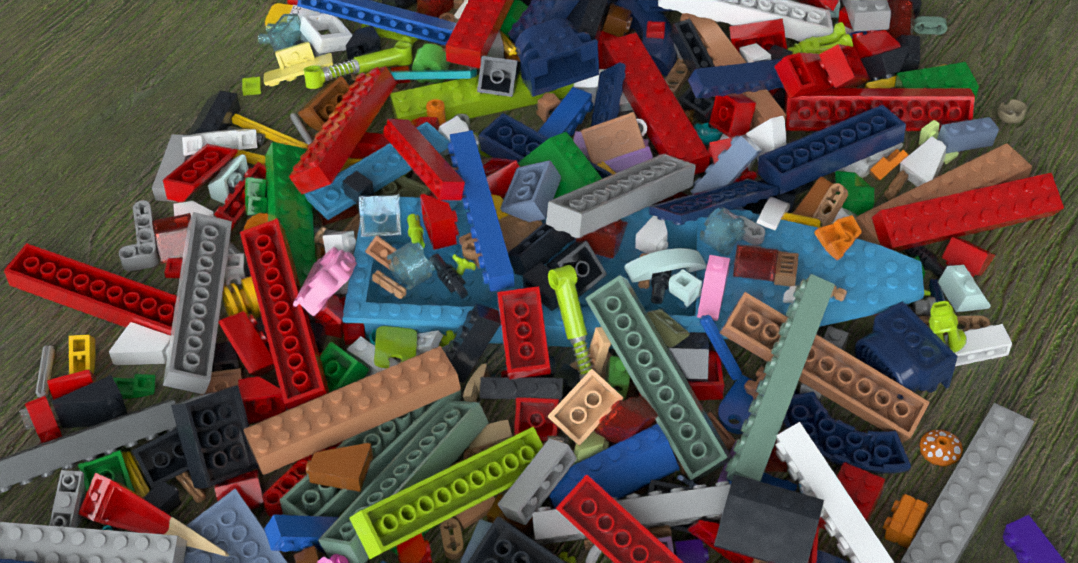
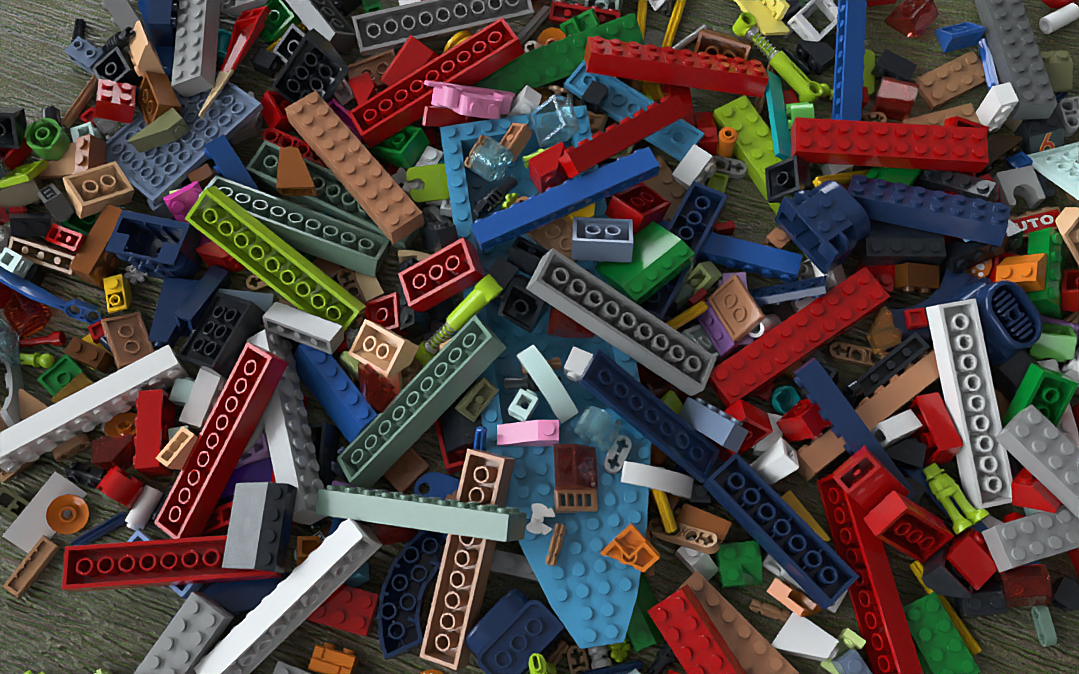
camera: 80 degrees right, 20 degrees up
(664, 49) = (883, 332): none -> clear orange slope

